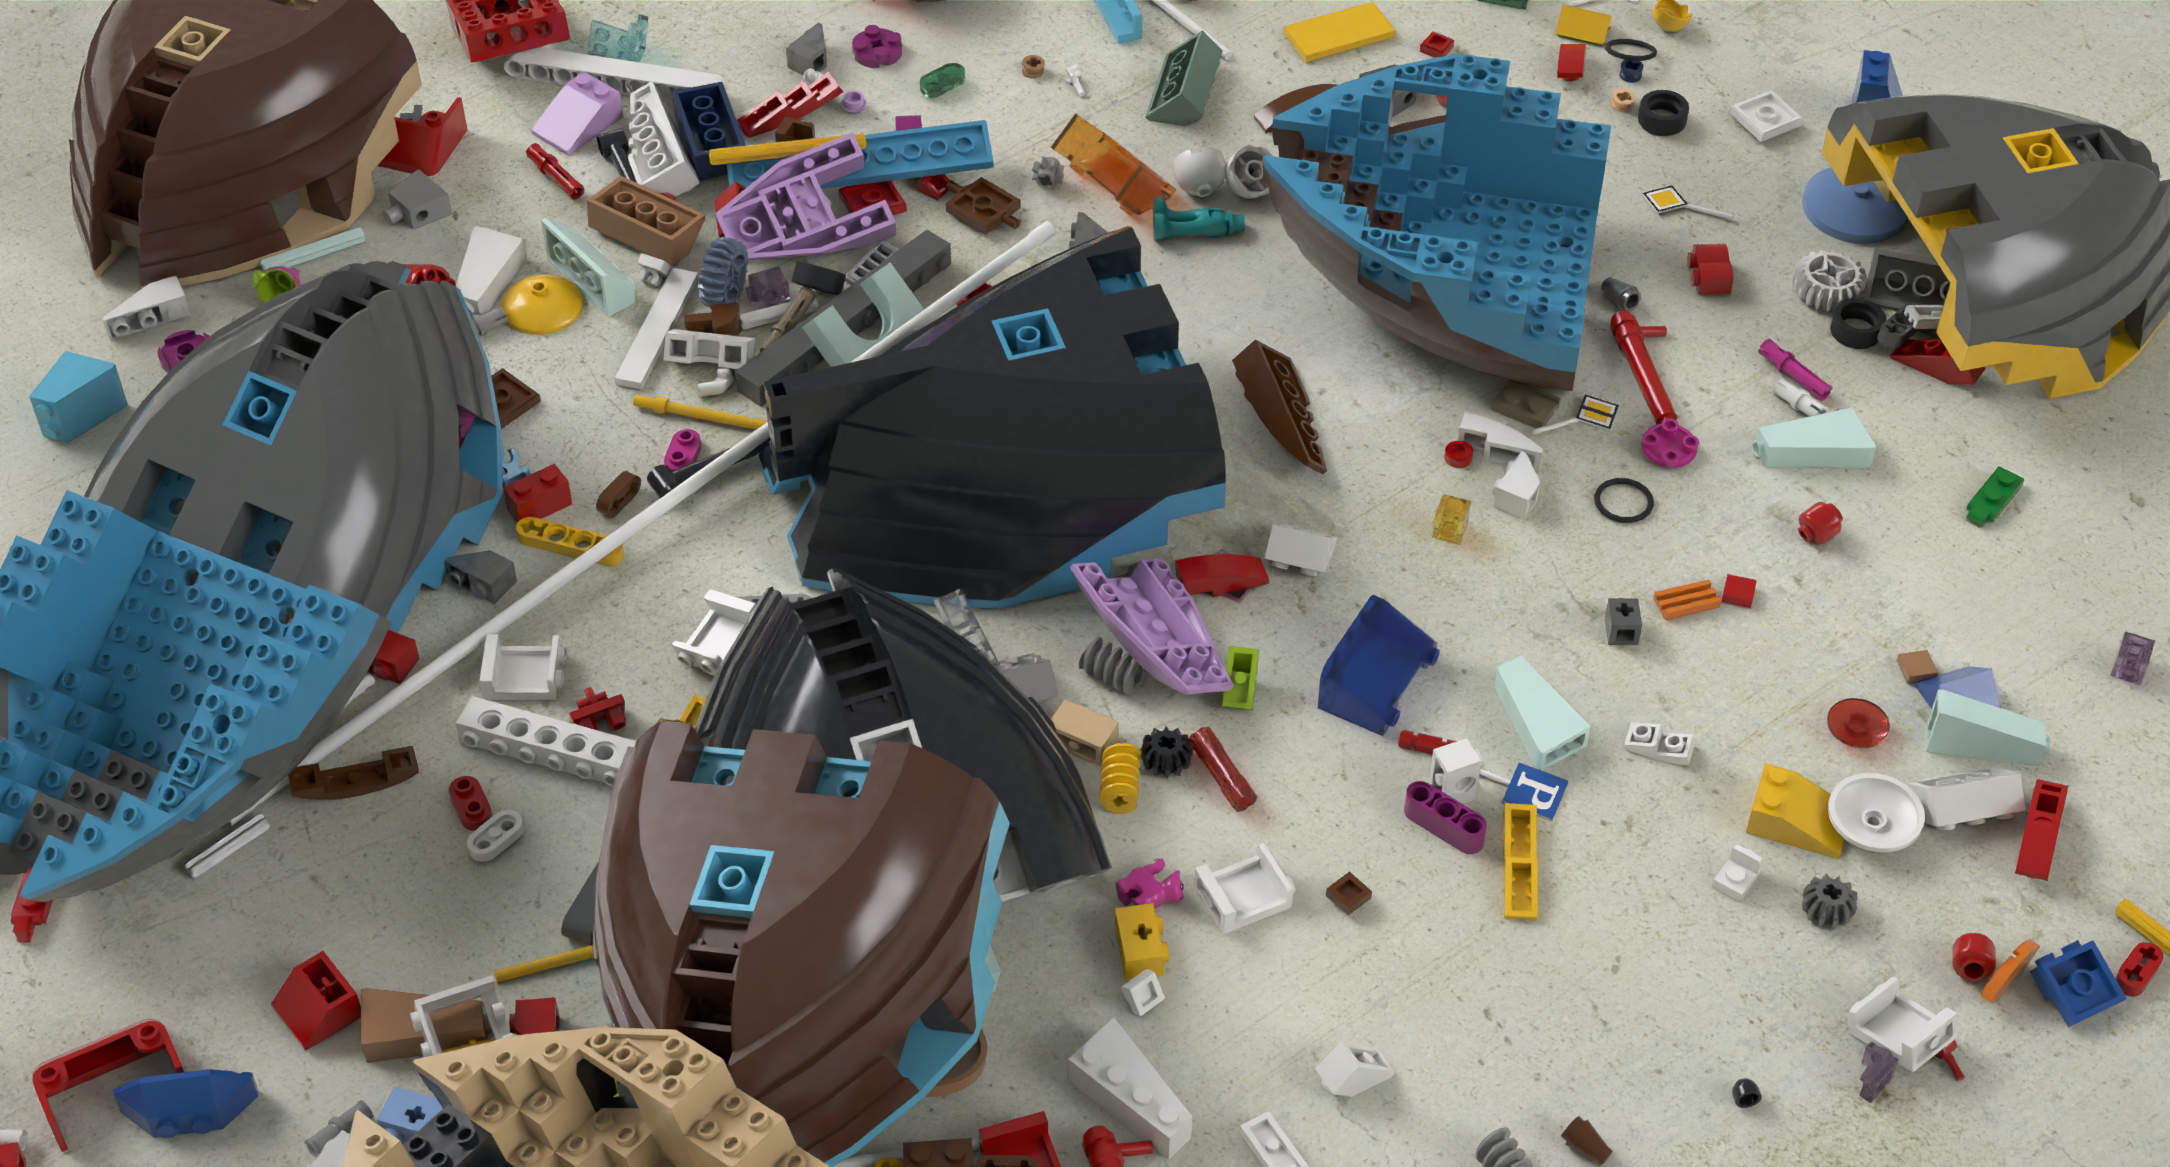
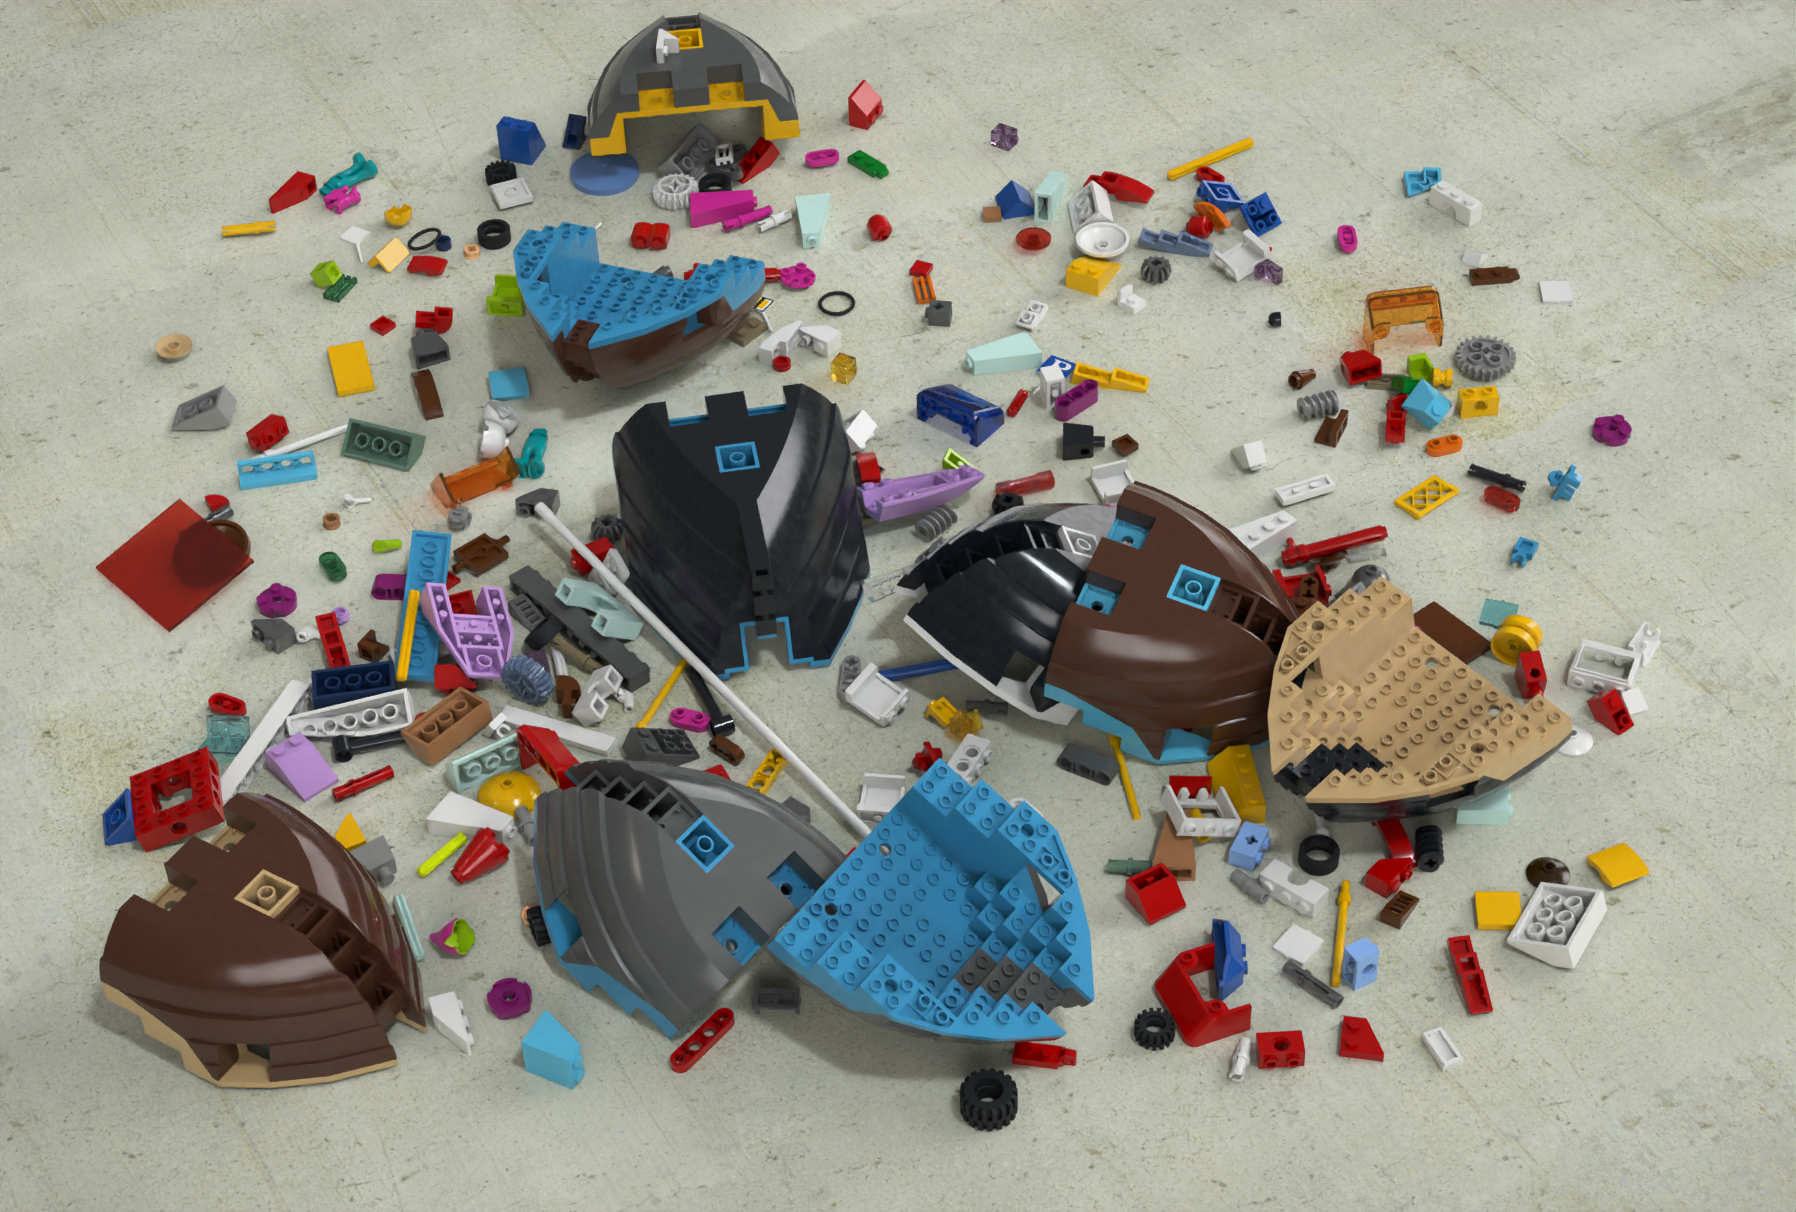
camera: 80 degrees left, 5 degrees down
(56, 1010) = (1154, 1039): none -> black tyre
(386, 969) = (1128, 866): none -> sand green pin
(429, 257) = (441, 855): none -> neon yellow axle
(457, 173) = (350, 834): none -> yellow slope
(548, 304) = (544, 747): none -> red windscreen
(617, 427) = (659, 745): none -> dark grey slope
(684, 38) = (227, 705): none -> red plate
(990, 114) = (385, 545): none -> lime arm
(1340, 828) = (1080, 441): none -> black torso
(1806, 97) = (500, 172): none -> black tyre
(1808, 332) = (716, 207): none -> dark pink slope
(1920, 926) = (1176, 244): none -> sand blue slope
(1983, 436) = (822, 158): none -> dark pink plate
(1994, 120) = (666, 44): none -> white slope
(2038, 1044) = (1260, 214): none -> blue slope
(2131, 462) = (864, 106): none -> red slope

